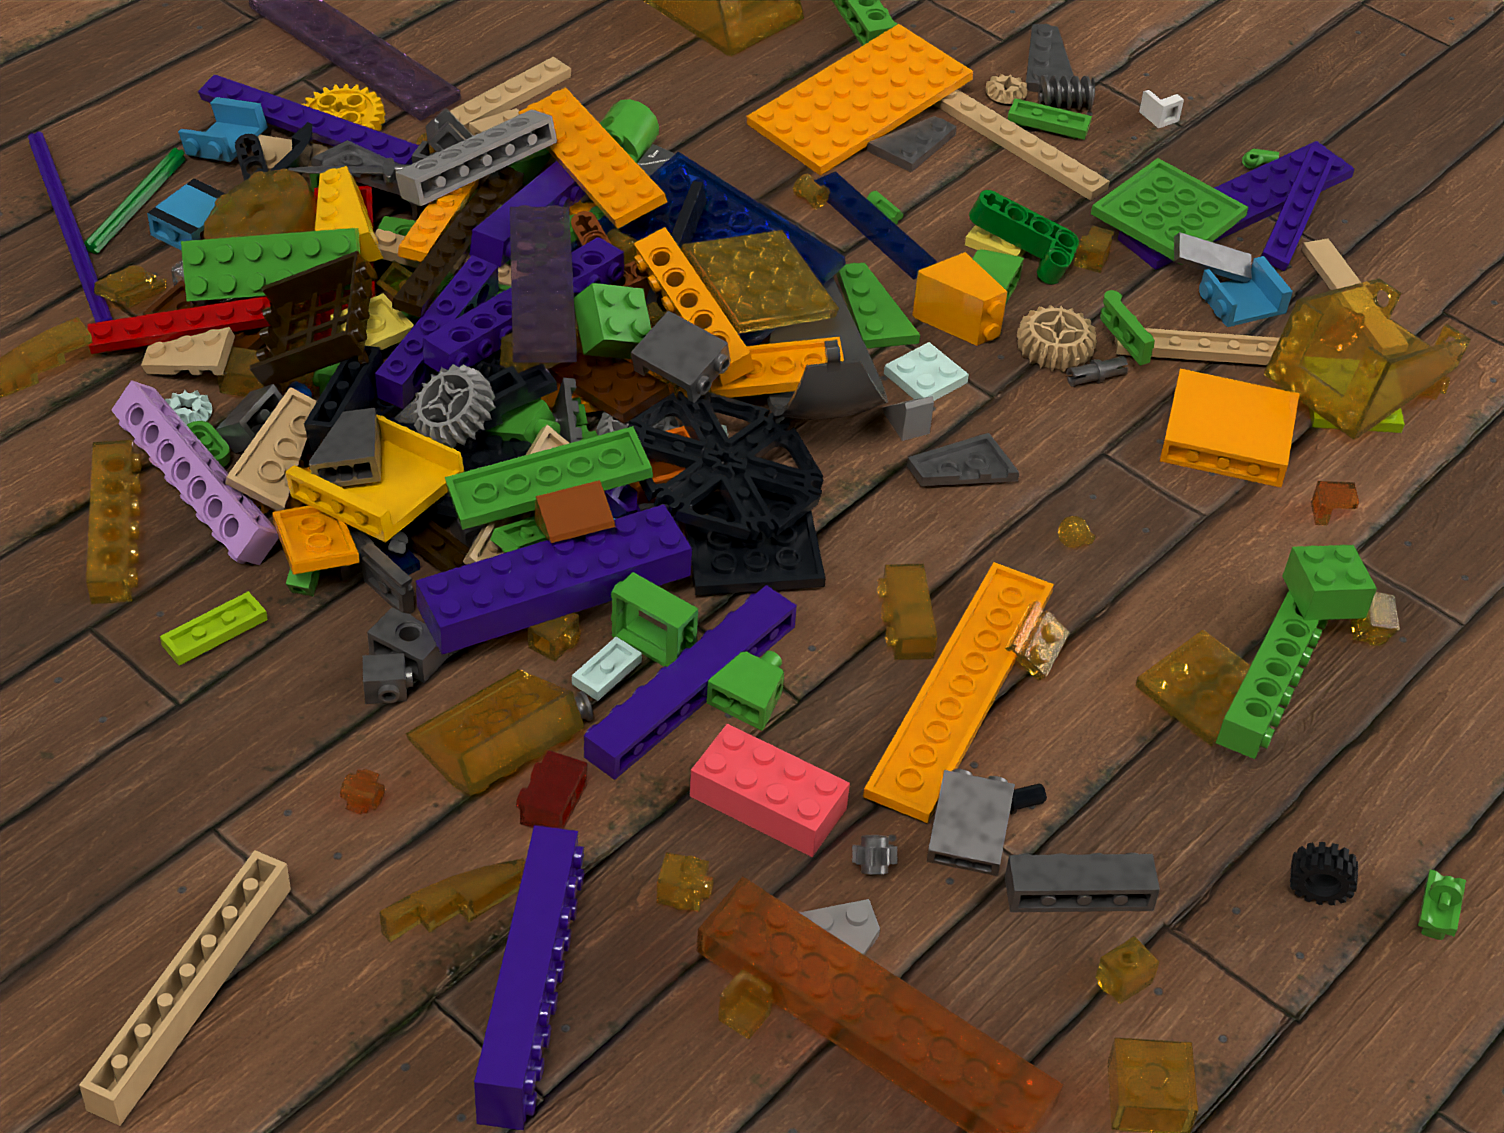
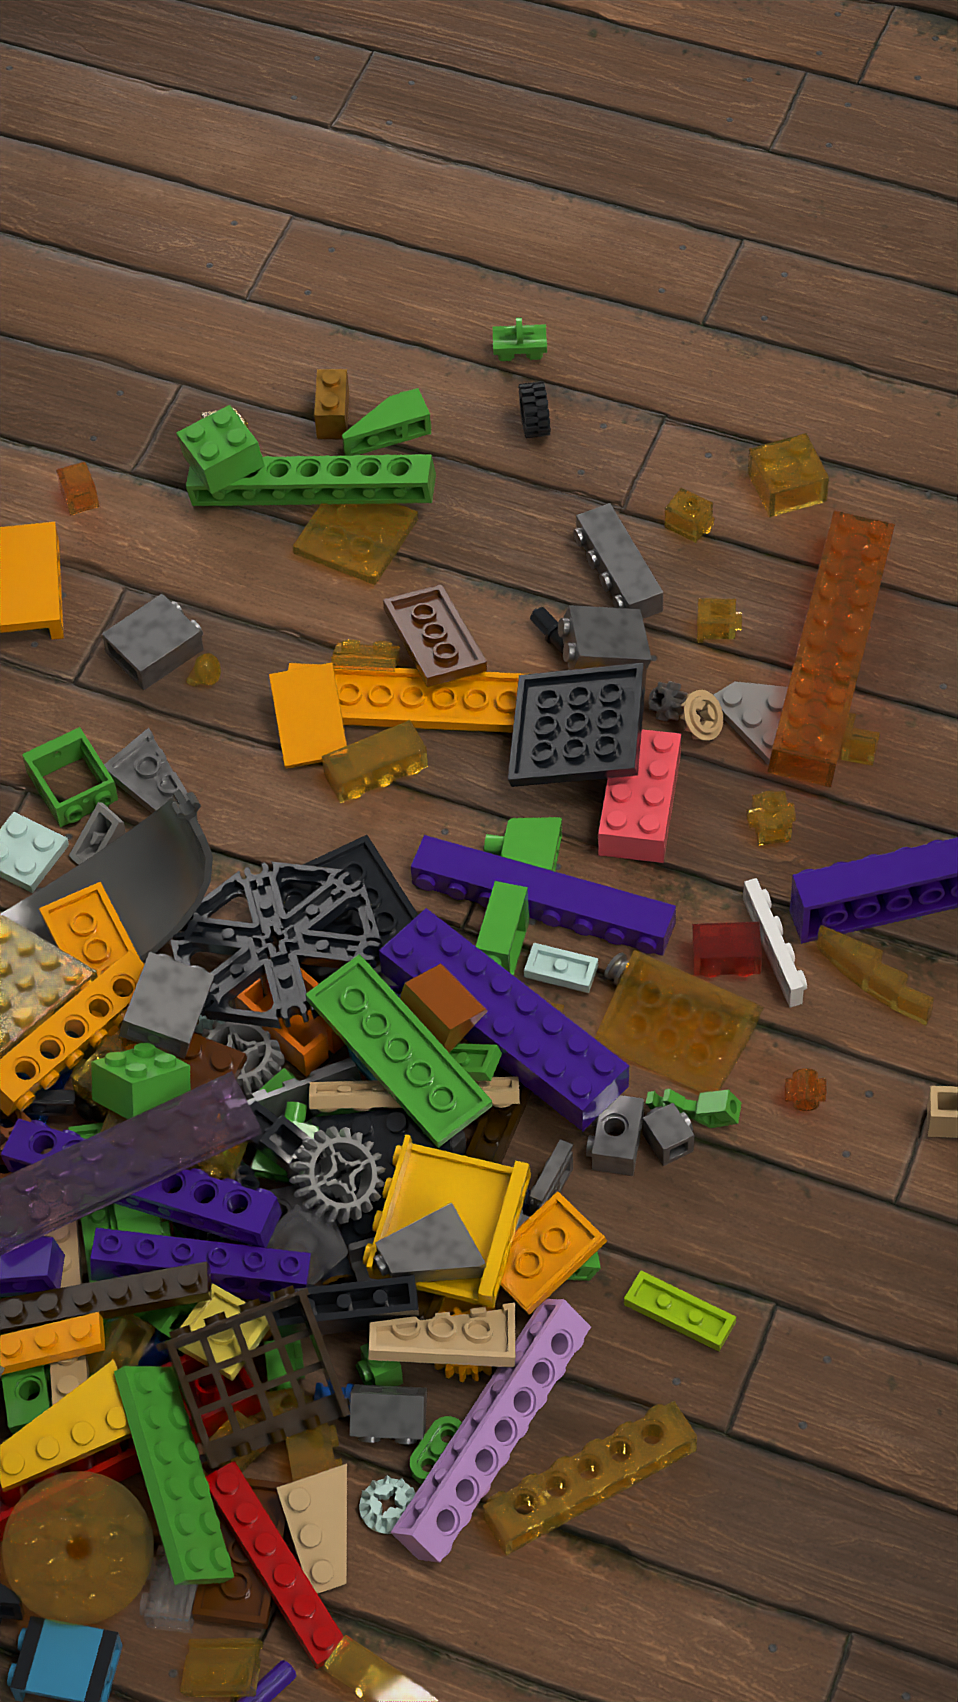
camera: 105 degrees left, 10 degrees up
(389, 718) = (711, 1108): none -> bright green piece
(516, 830) = (778, 952): none -> white plate
(829, 882) = (710, 711): none -> tan gear
(861, 746) = (577, 725): none -> black plate
(965, 945) = (717, 619): none -> clear yellow brick
(980, 574) = (307, 714): none -> light orange tile
(986, 395) = (69, 749): none -> bright green window
(1039, 694) = (434, 635): none -> plate
(1122, 503) = (153, 641): none -> flat silver brick
(1351, 758) = (390, 423): none -> bright green slope
(1390, 715) = (331, 403): none -> pearl gold brick

